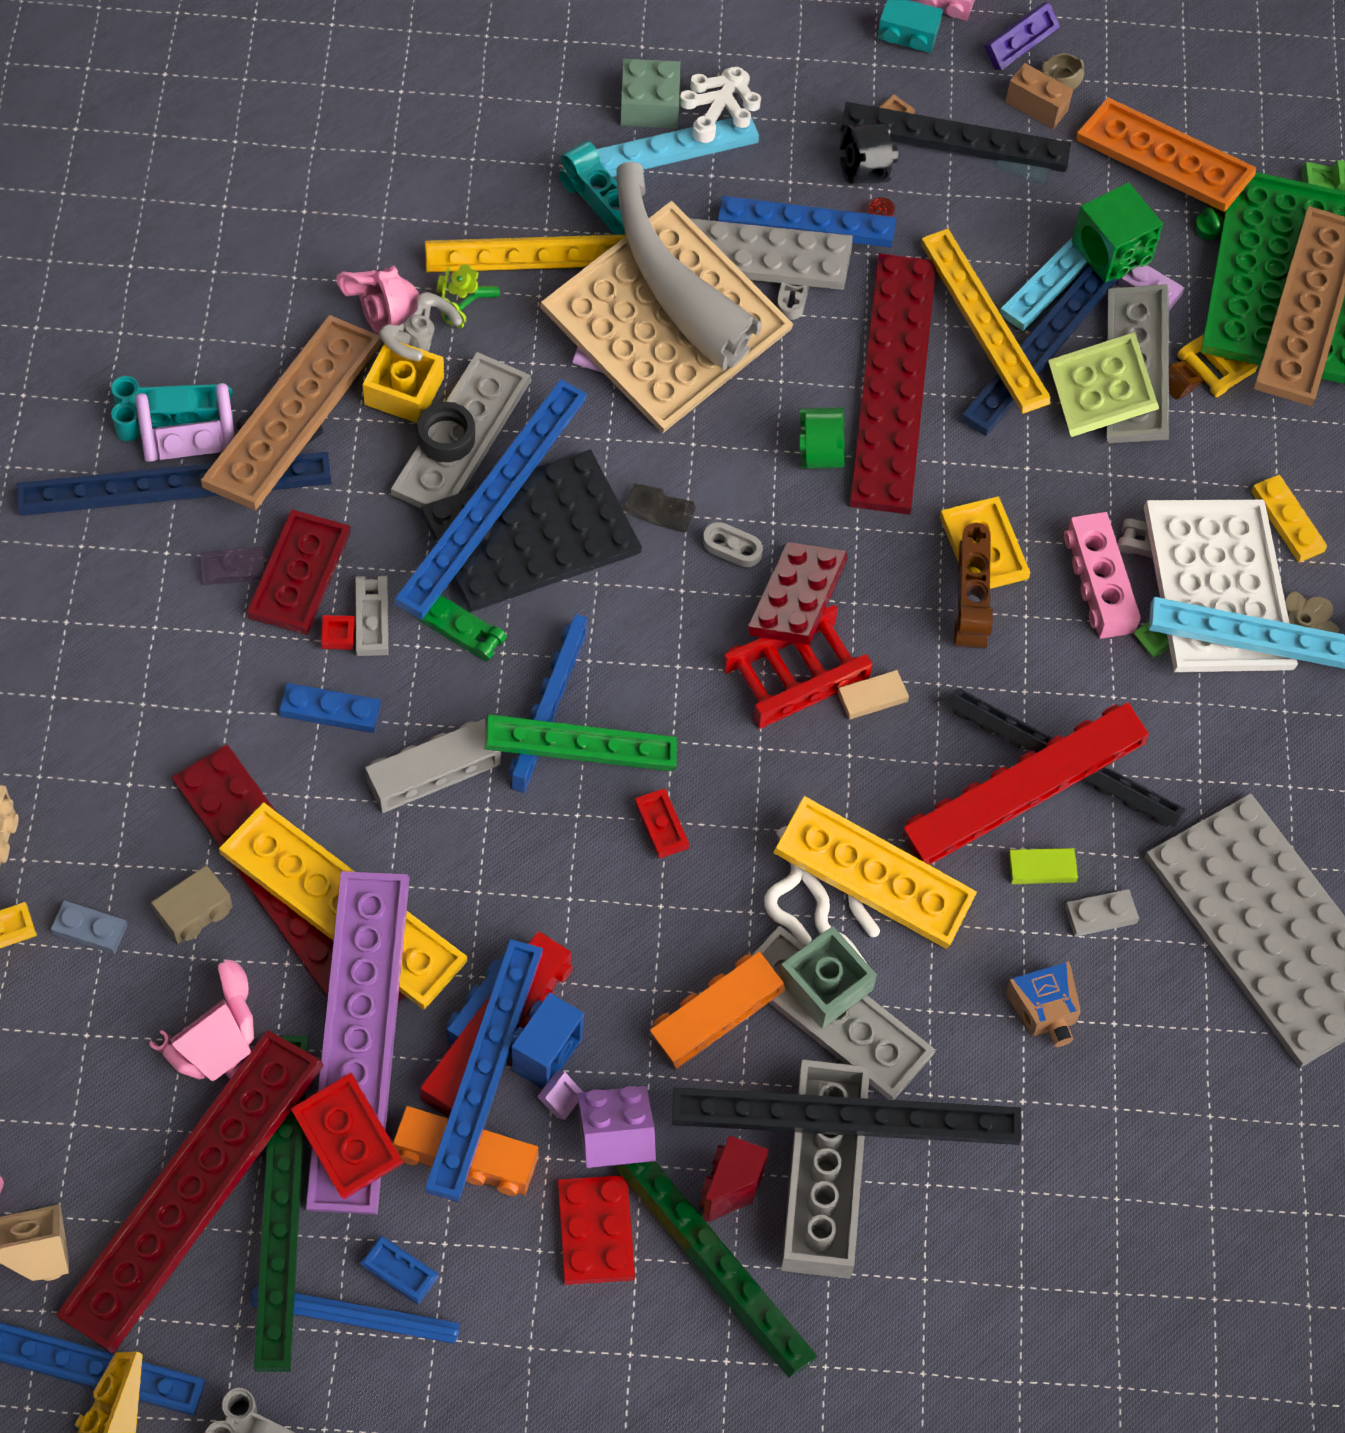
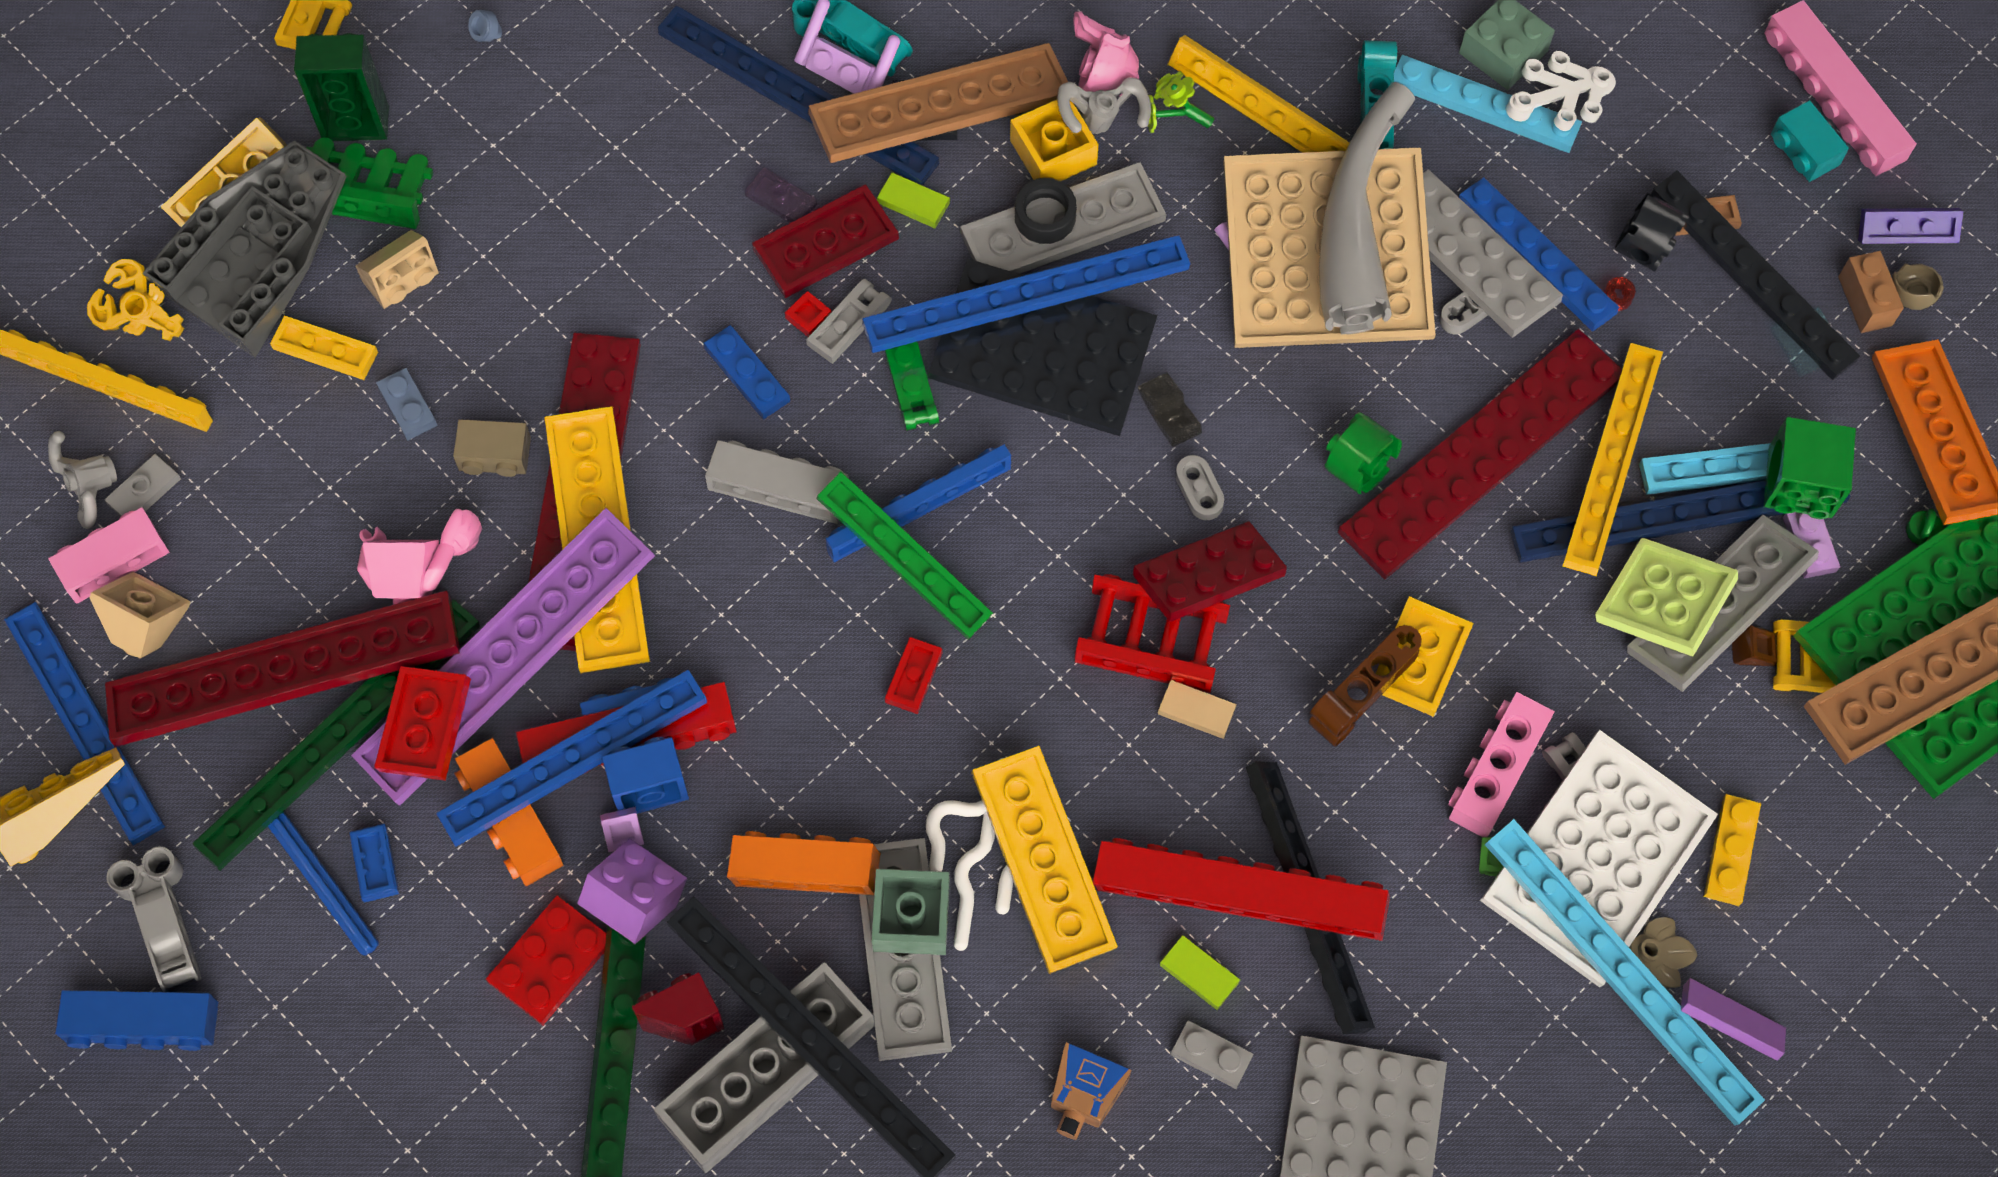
camera: 45 degrees right, 5 degrees up
(335, 496) = (913, 200): none -> lime tile

